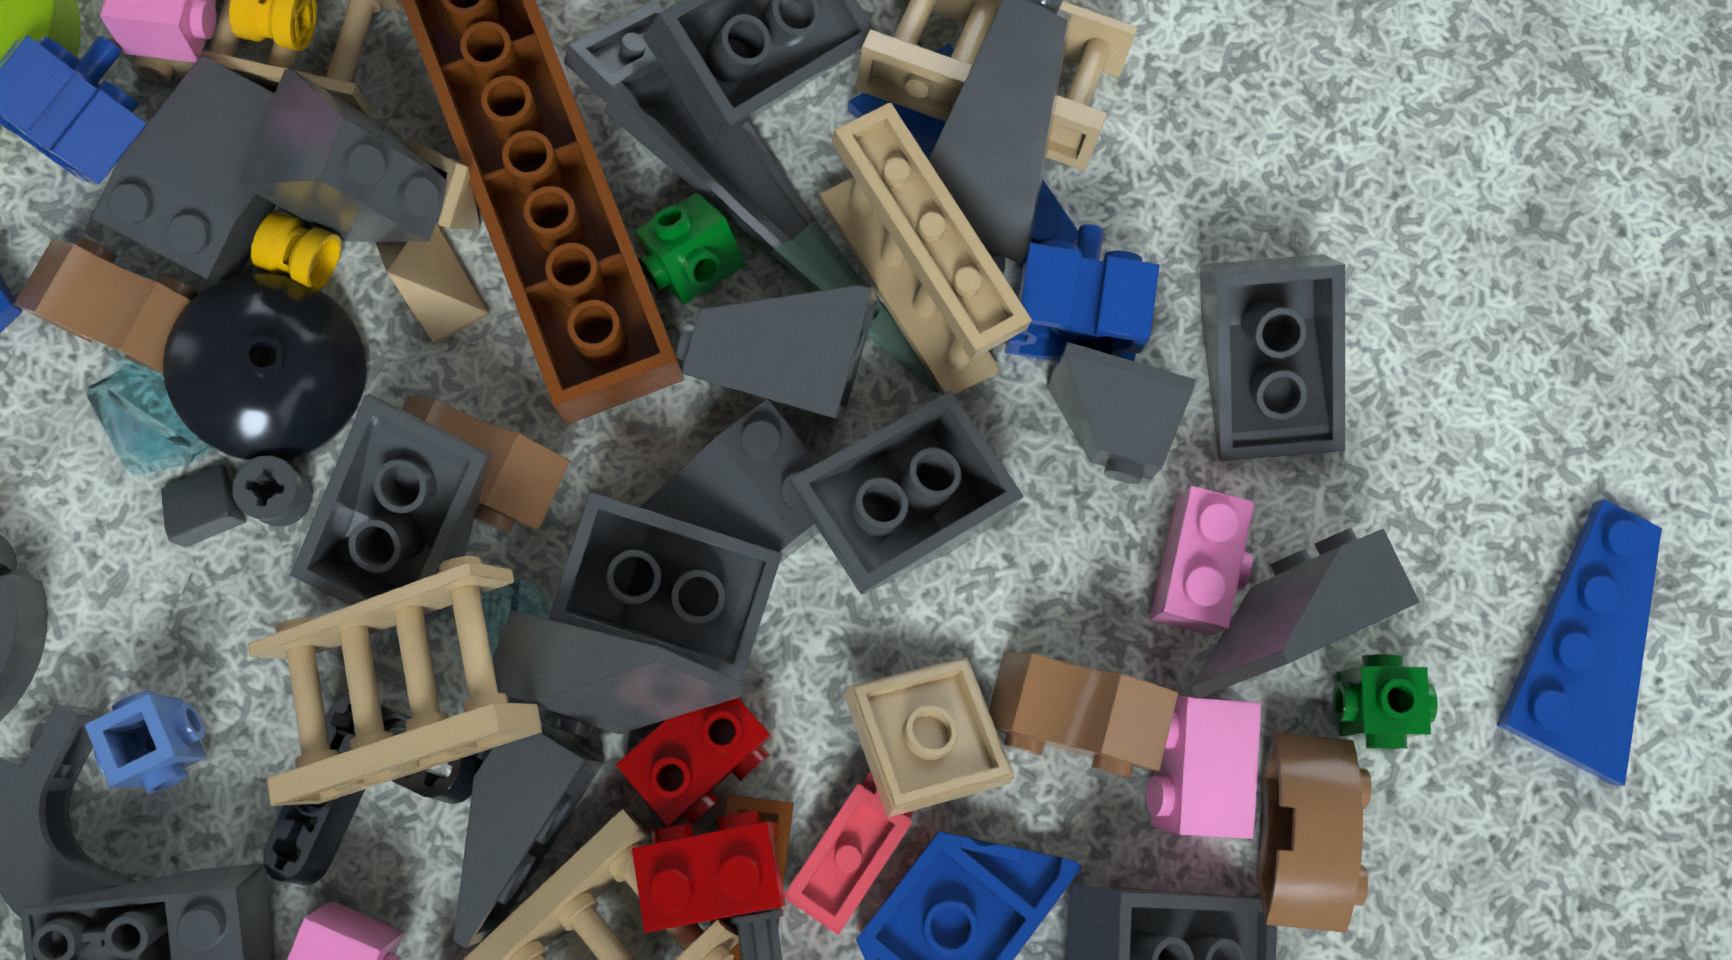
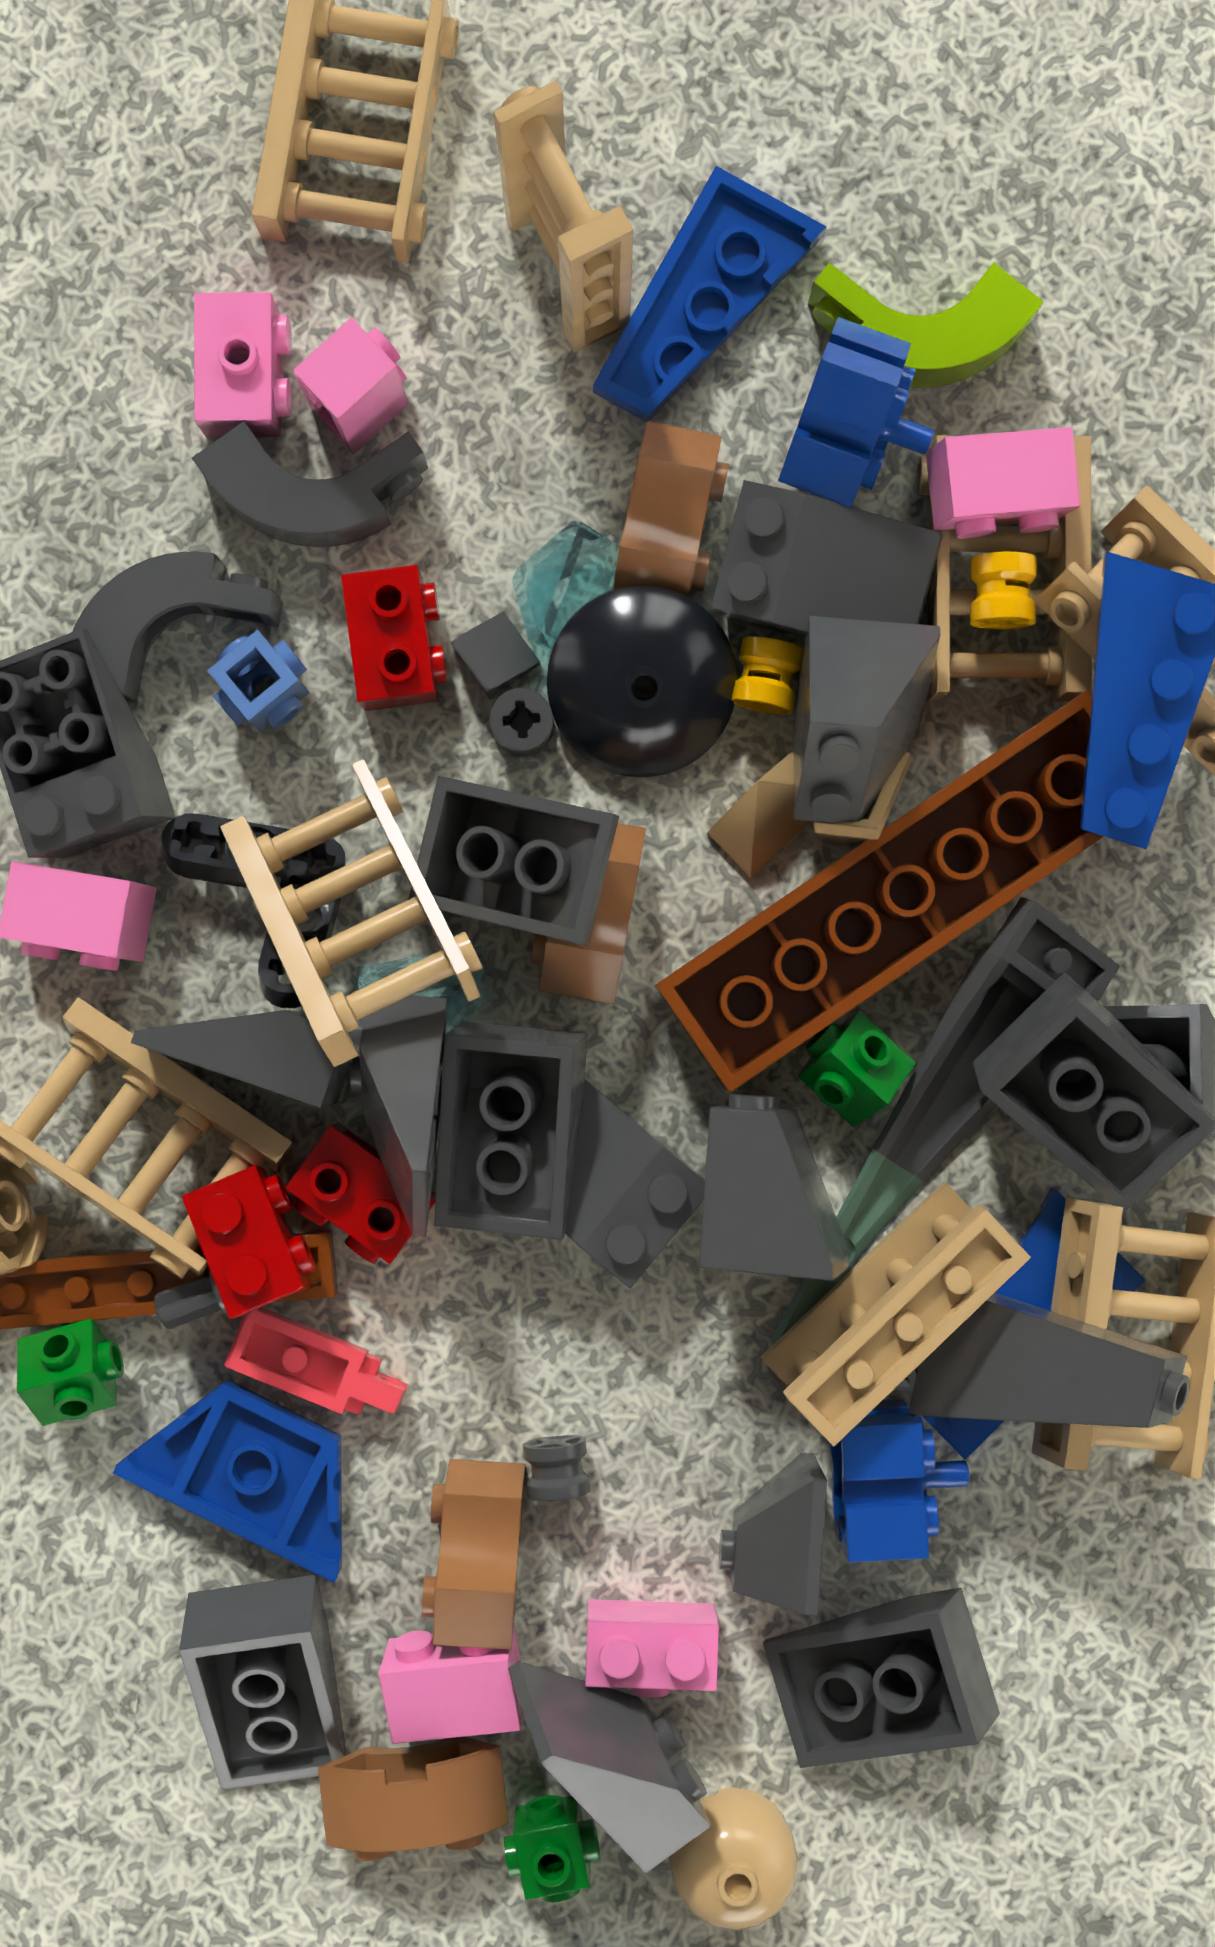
camera: 80 degrees right, 10 degrees up
(148, 599) = (391, 637): none -> red brick
(907, 493) = (647, 1348): dark grey slope -> none
(927, 736) = (424, 1411): tan tile -> none
(1012, 617) = (556, 1468): none -> dark grey wheel
(1432, 525) = (740, 1865): none -> tan cylinder

